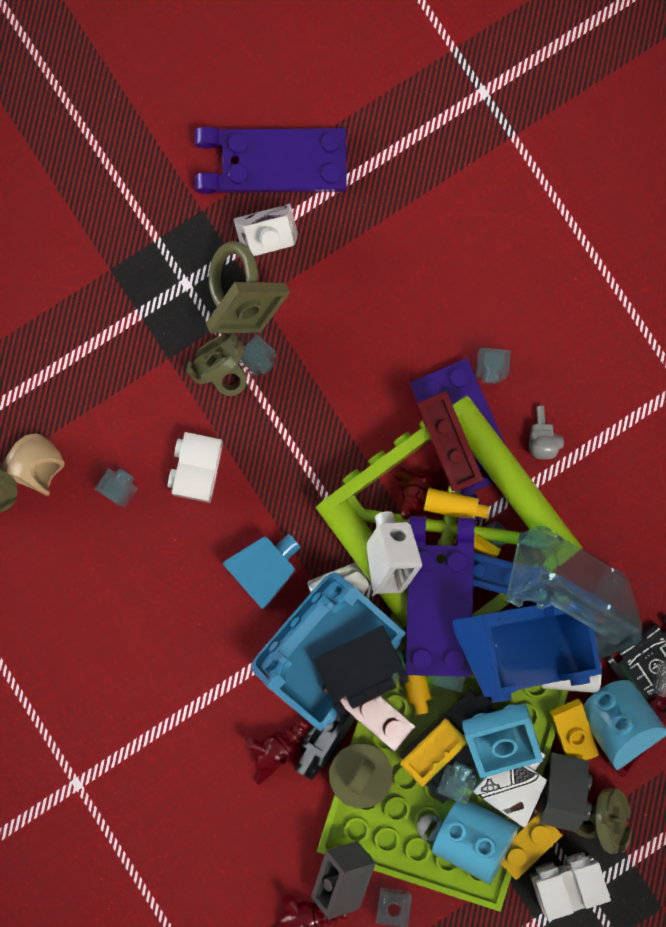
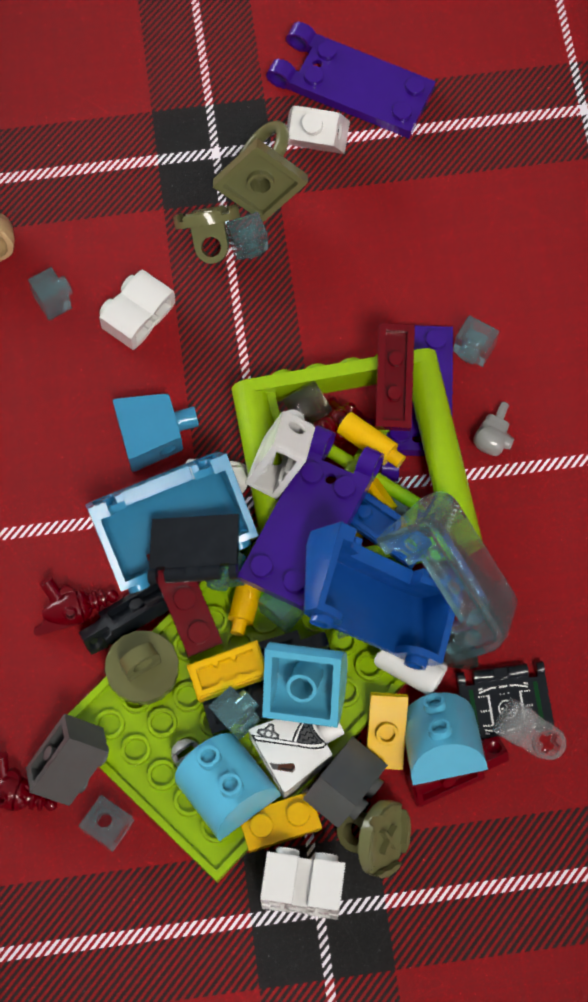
camera: 25 degrees right, 15 degrees down
(384, 493) = (308, 401): none -> clear smoke tile

